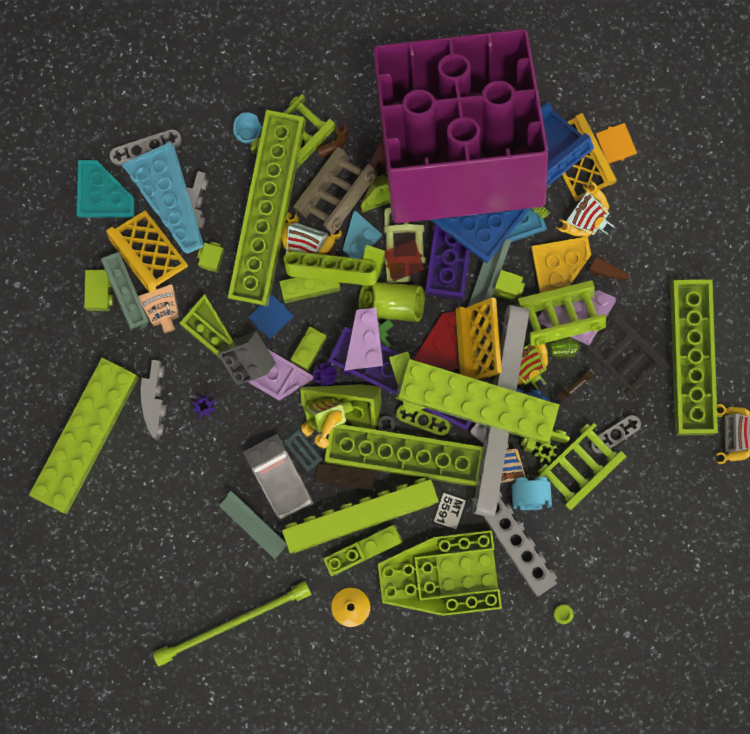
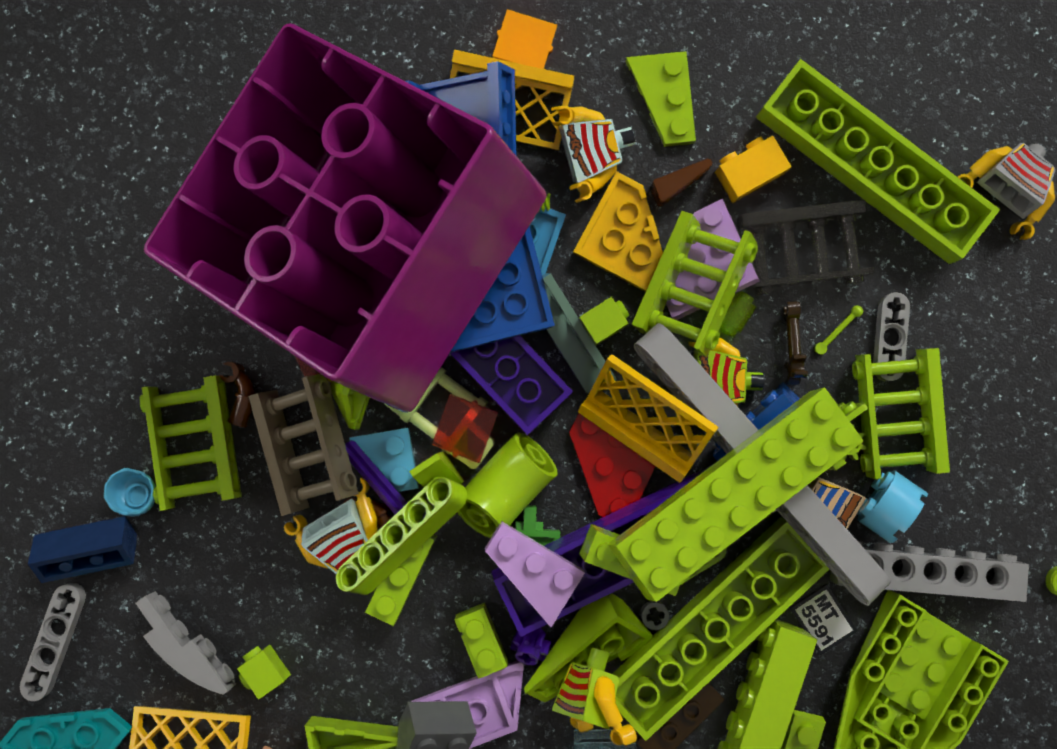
camera: 50 degrees left, 5 degrees up
(164, 188) = (128, 667): medium azure wing -> none
(203, 127) = (83, 549): none -> dark blue brick
(267, 208) = (255, 553): lime brick -> none
(271, 318) = (401, 651): blue piece -> none
(346, 234) = (374, 477): none -> dark purple axle
(582, 405) = (821, 347): none -> lime hinge
(642, 301) = (752, 168): none -> yellow piece
(646, 232) = (667, 93): none -> lime wing

